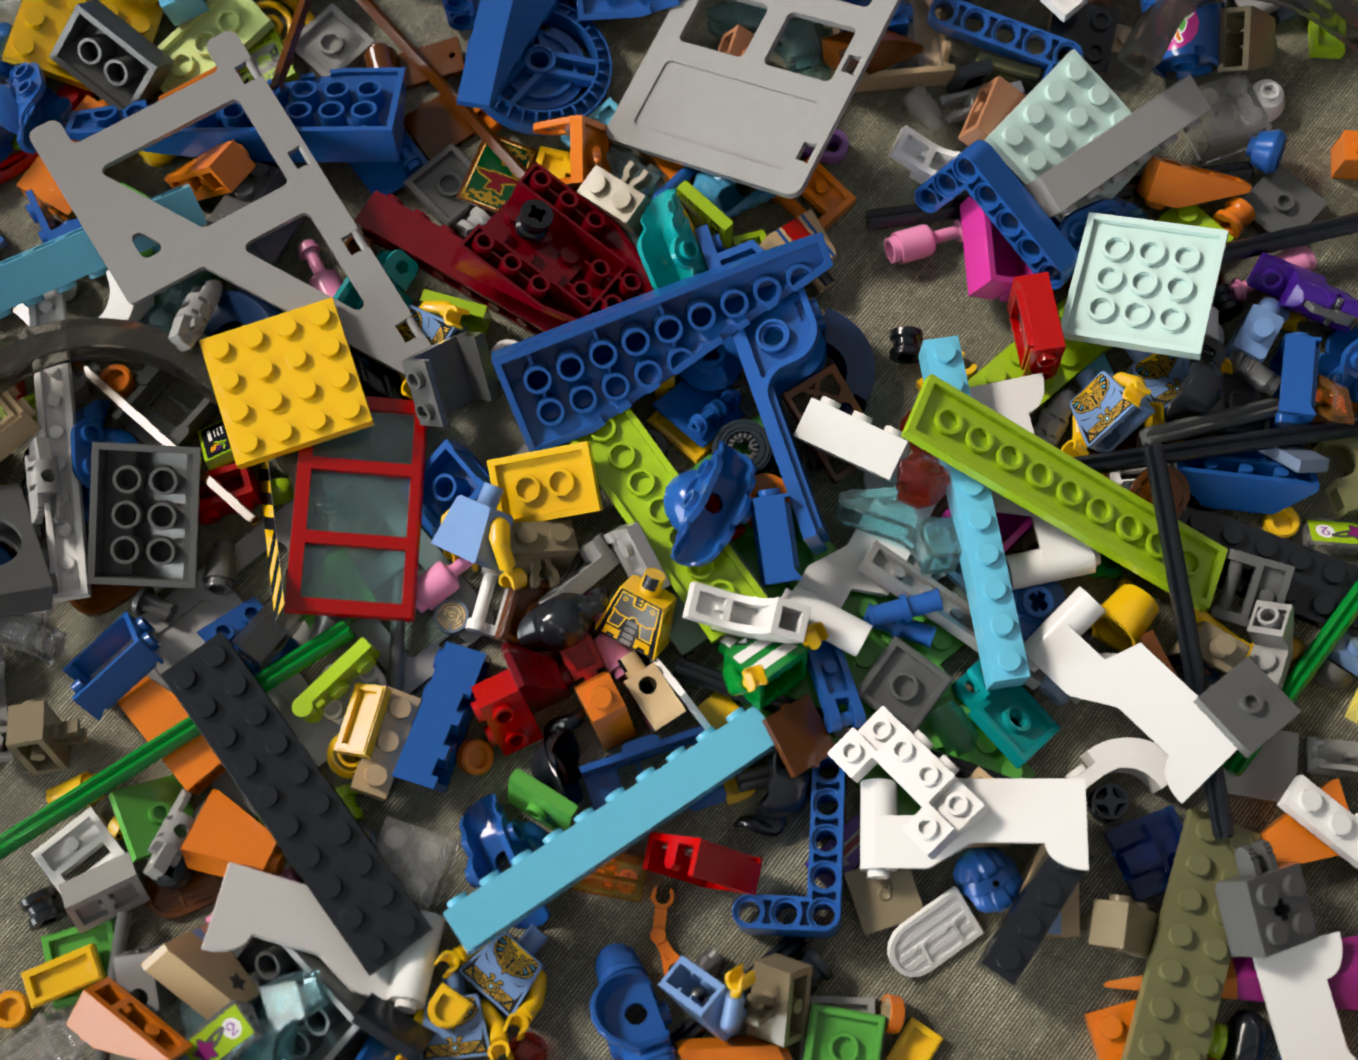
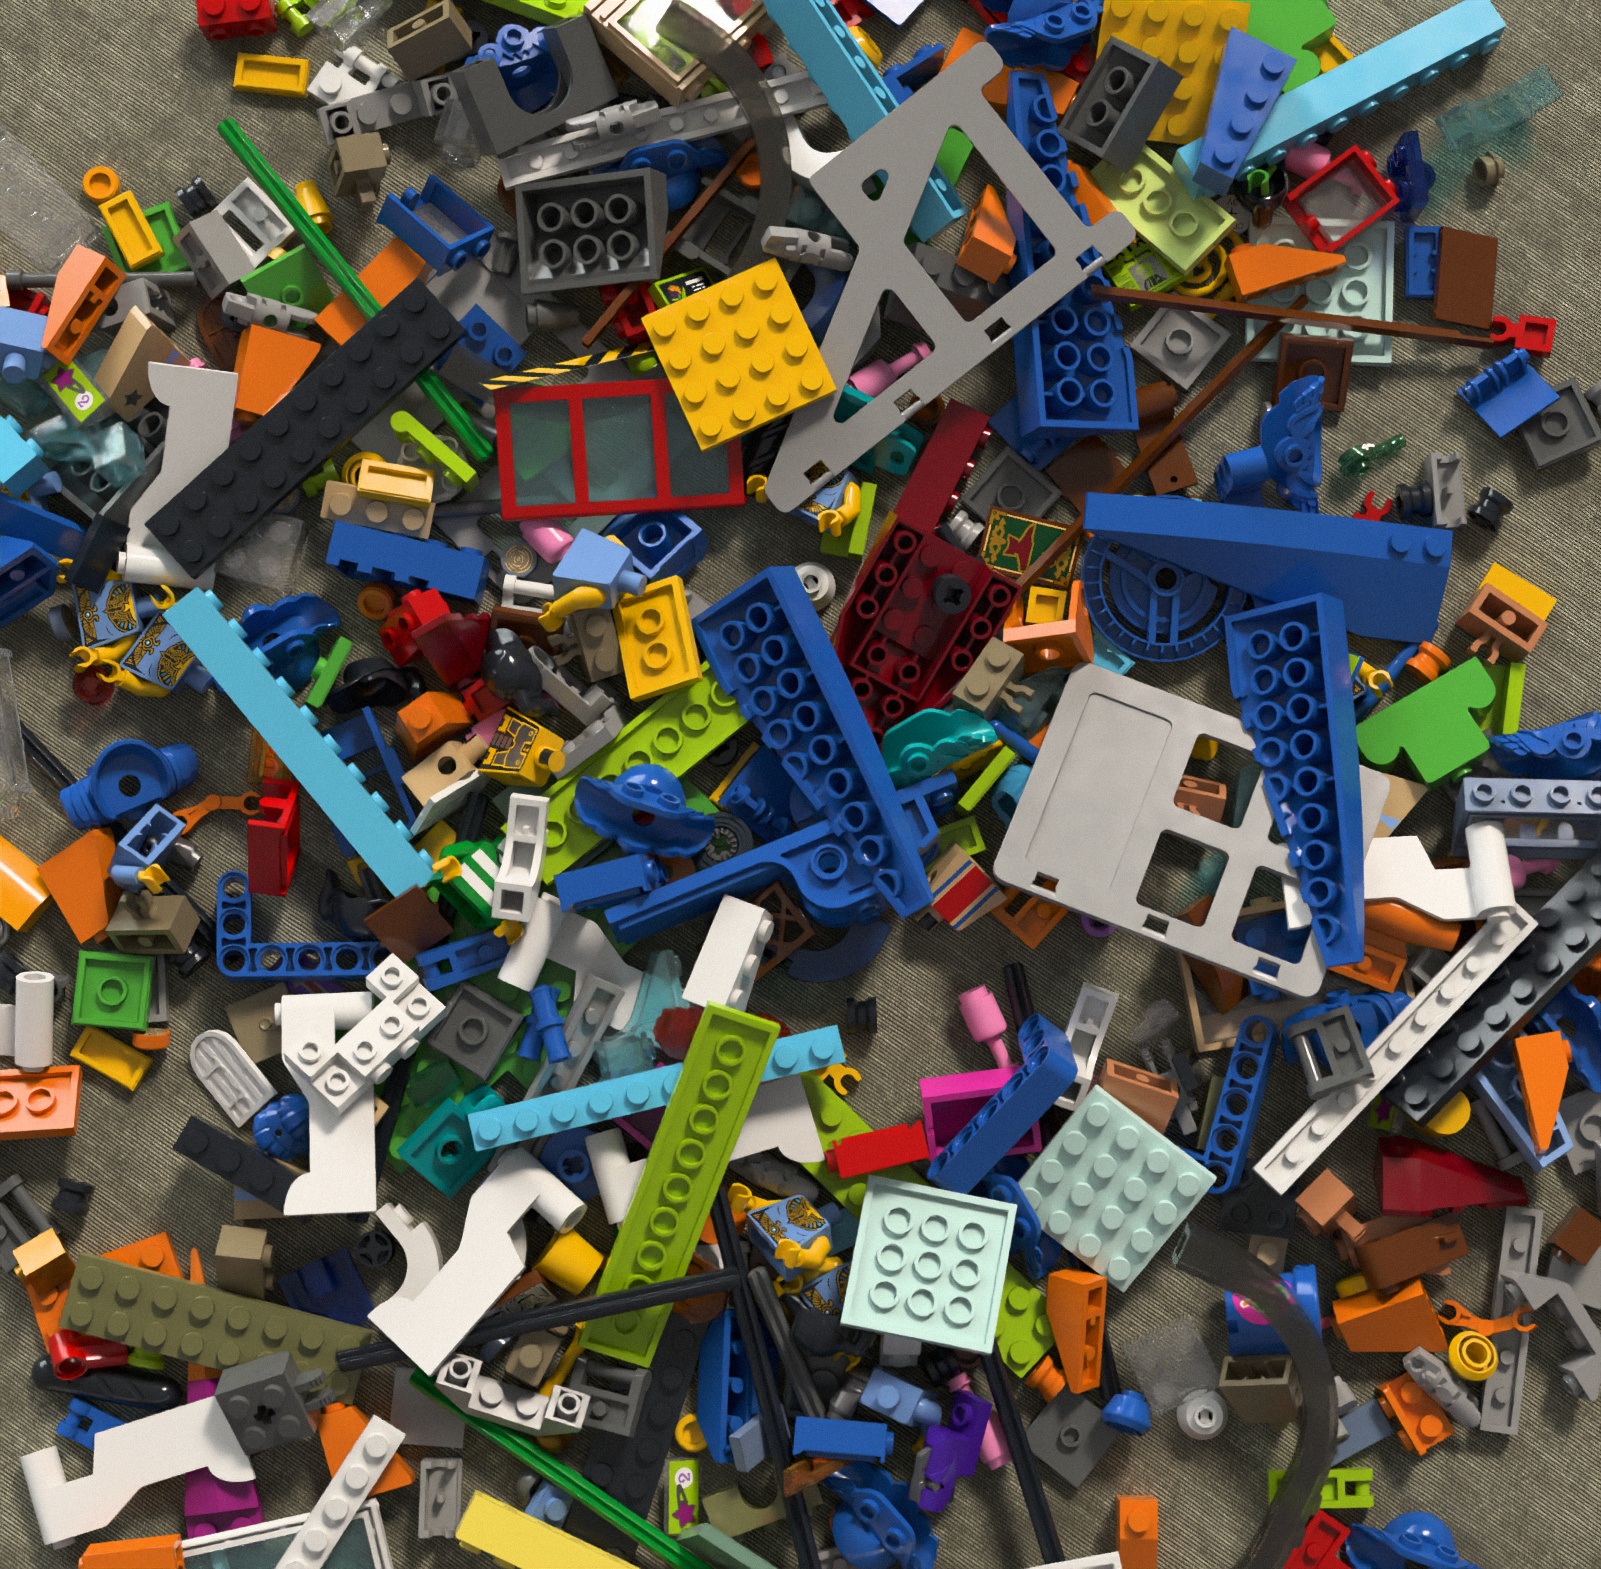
camera: 85 degrees right, 10 degrees up
(448, 1007) = (123, 603): yellow tile -> none
(450, 376) = (771, 521): dark grey panel -> none
(1119, 147) = (1098, 1236): light grey brick -> none
(1247, 707) = (462, 1376): dark grey plate -> none

